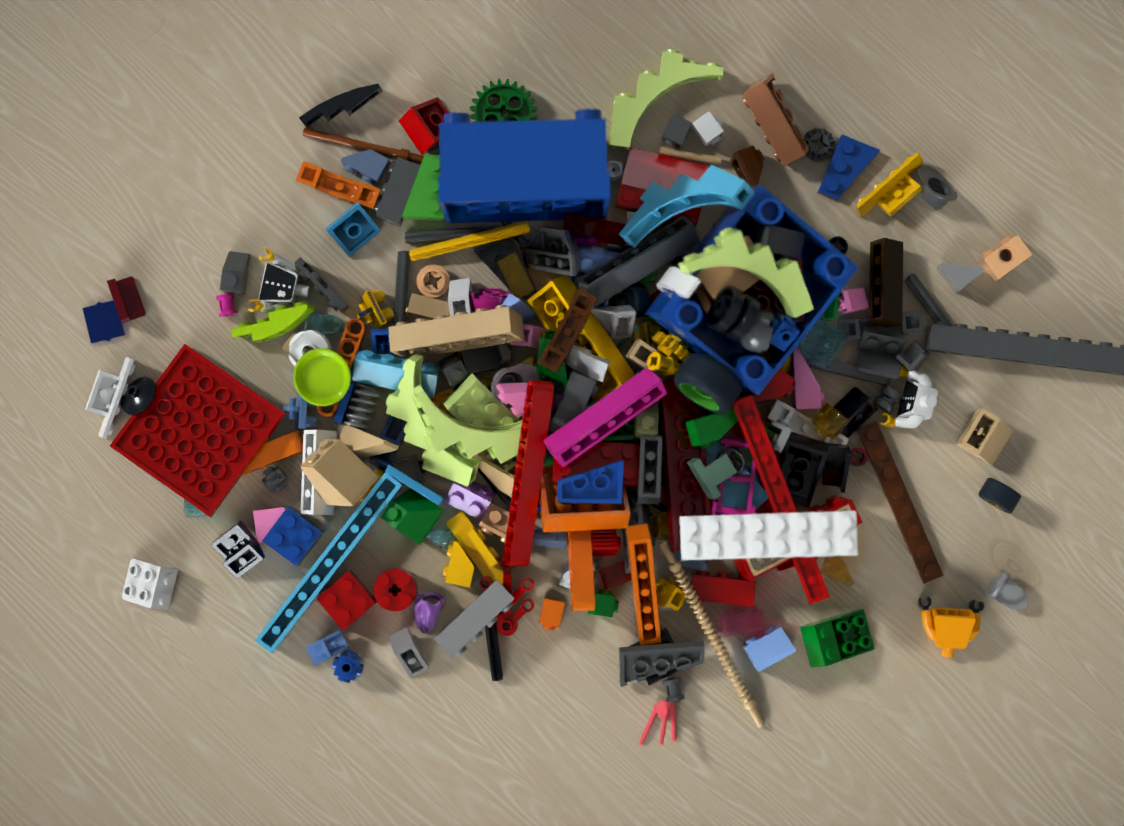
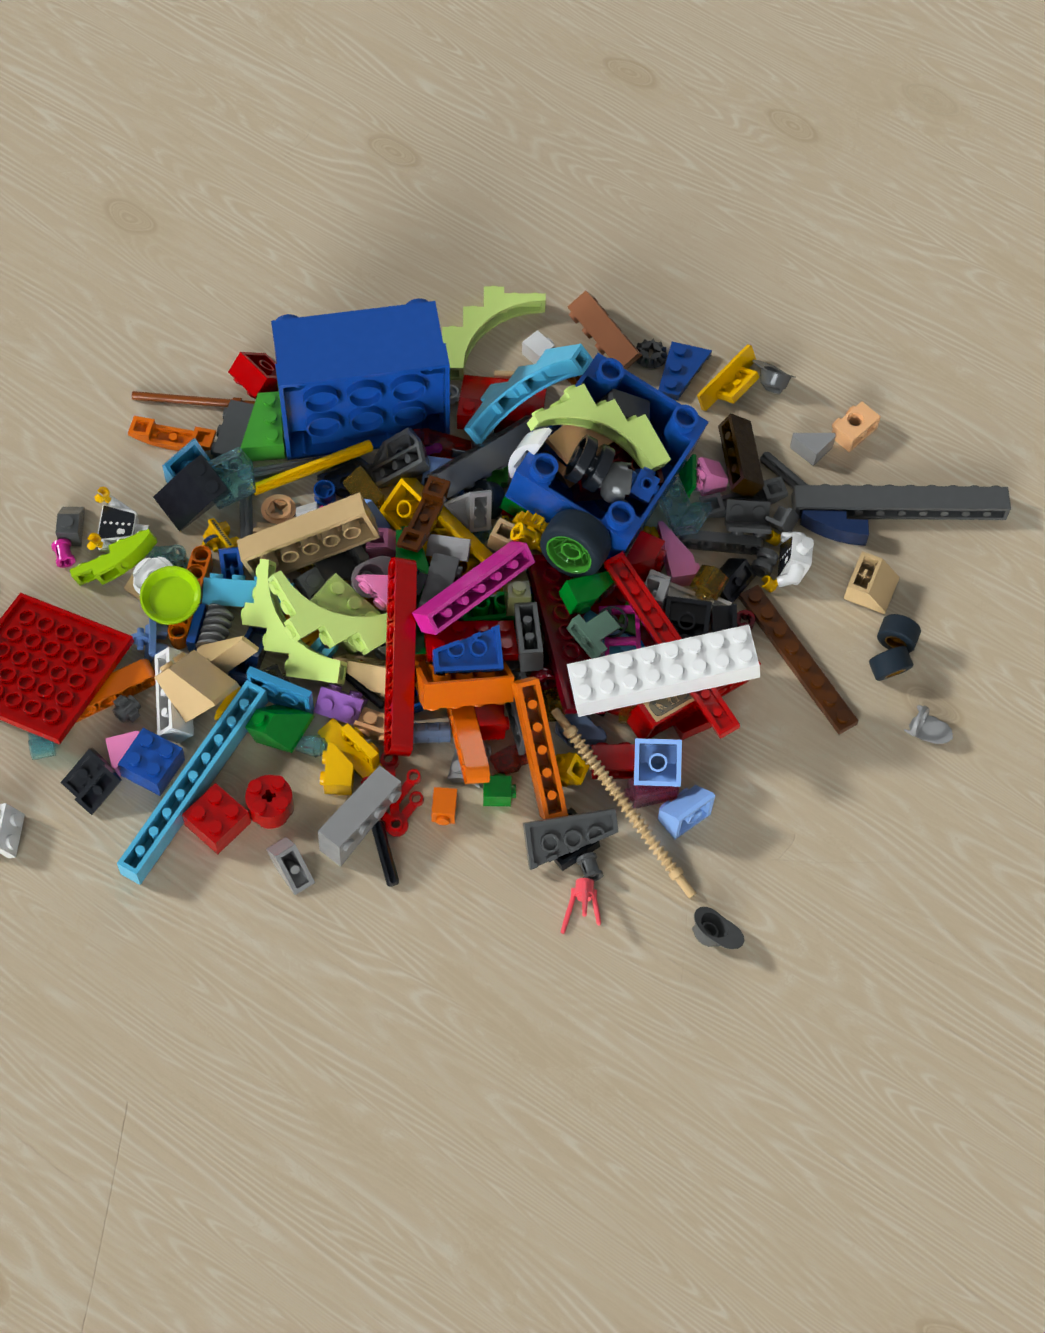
camera: 10 degrees left, 25 degrees down
(321, 286) = (163, 525): dark grey wing -> none
(327, 647) = (198, 868): medium blue hips -> none
(348, 101) = (172, 363): black slope -> none
(353, 260) = (191, 492): none -> black slope
(355, 666) = (223, 885): blue brick -> none
(368, 164) = (199, 412): sand blue slope -> none
(391, 247) = (237, 473): none -> clear light blue bracket
(425, 613) = (305, 822): medium lavender piece -> none
(478, 271) = (324, 493): none -> blue wheel
(659, 511) = (546, 678): none -> dark red bush
(676, 132) = (508, 354): dark grey brick -> none
(750, 607) = (657, 762): none -> light blue slope
(777, 767) = (715, 930): none -> dark grey piece
(835, 568) = (749, 729): clear yellow slope -> none
(837, 638) = (757, 795): green slope -> none
(951, 626) = (876, 766): light orange torso -> none
(965, 368) = (836, 526): none -> dark blue slope
(985, 523) = (891, 663): none -> black wheel

